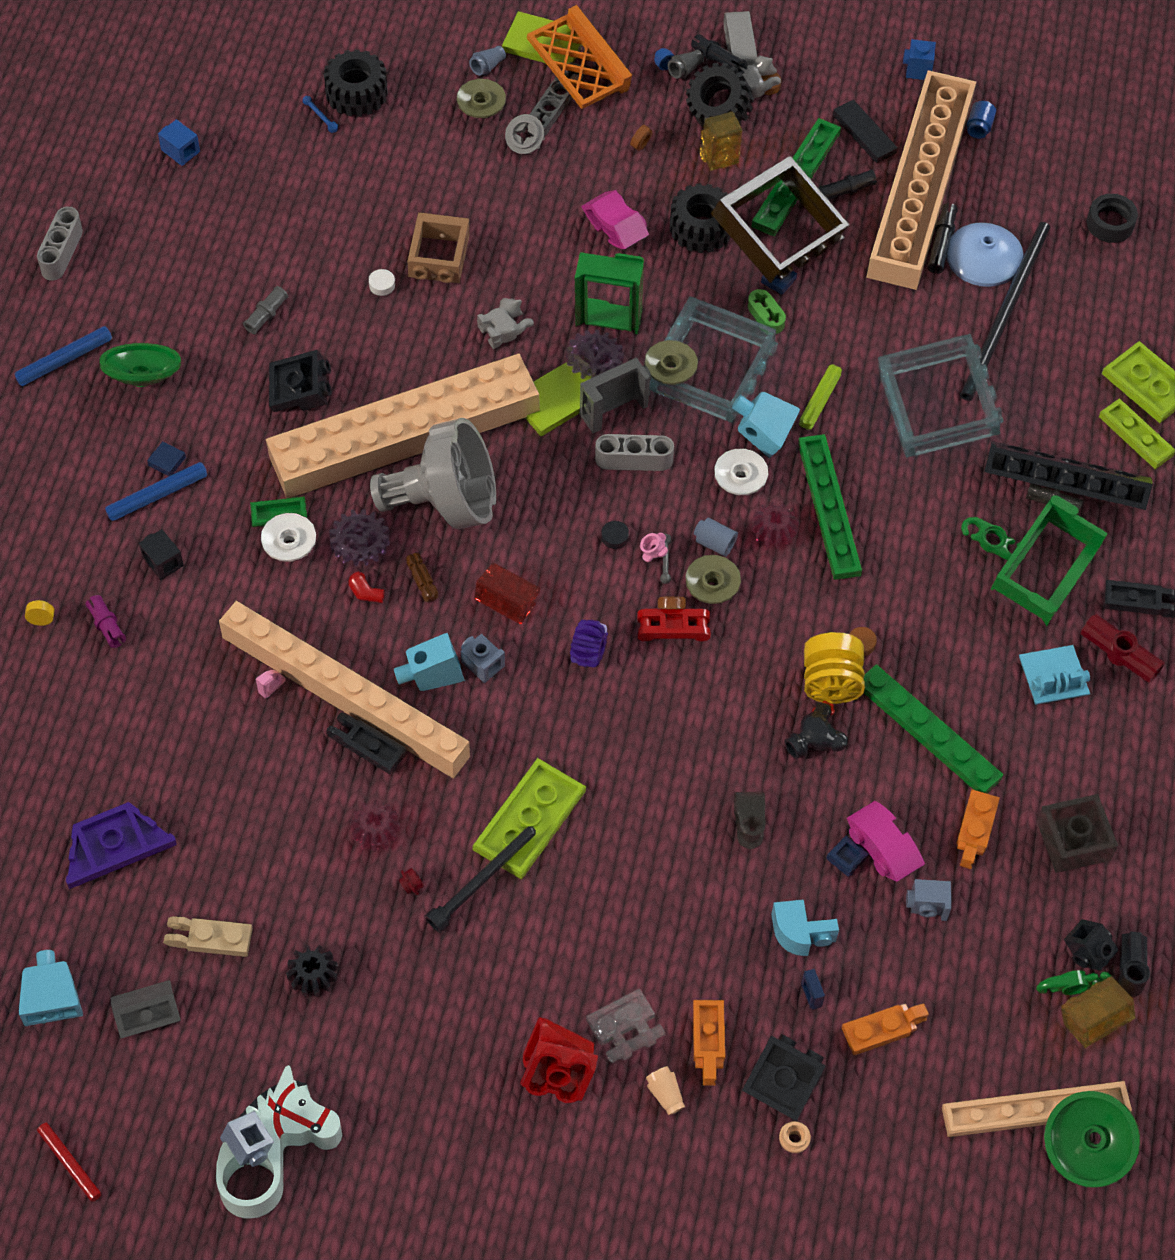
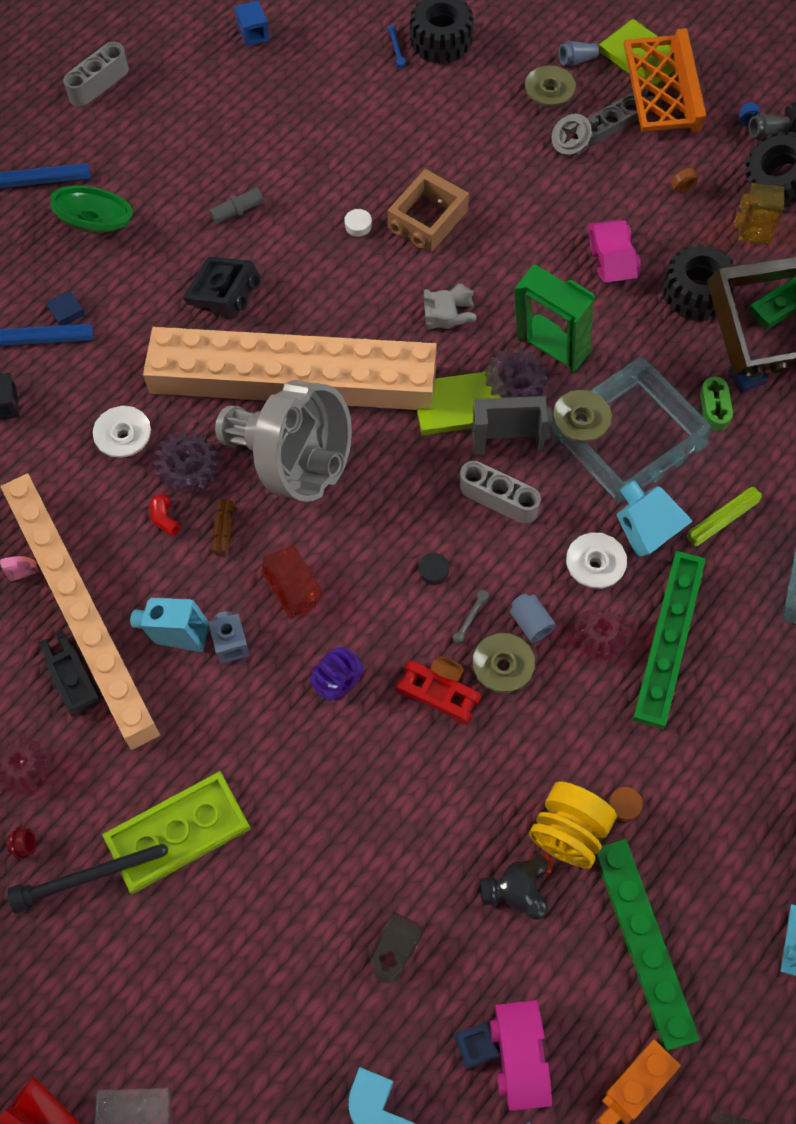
camera: 30 degrees right, 5 degrees up
(266, 510) = (123, 396): green tile -> none
(653, 546) = (463, 599): bright pink plate -> none

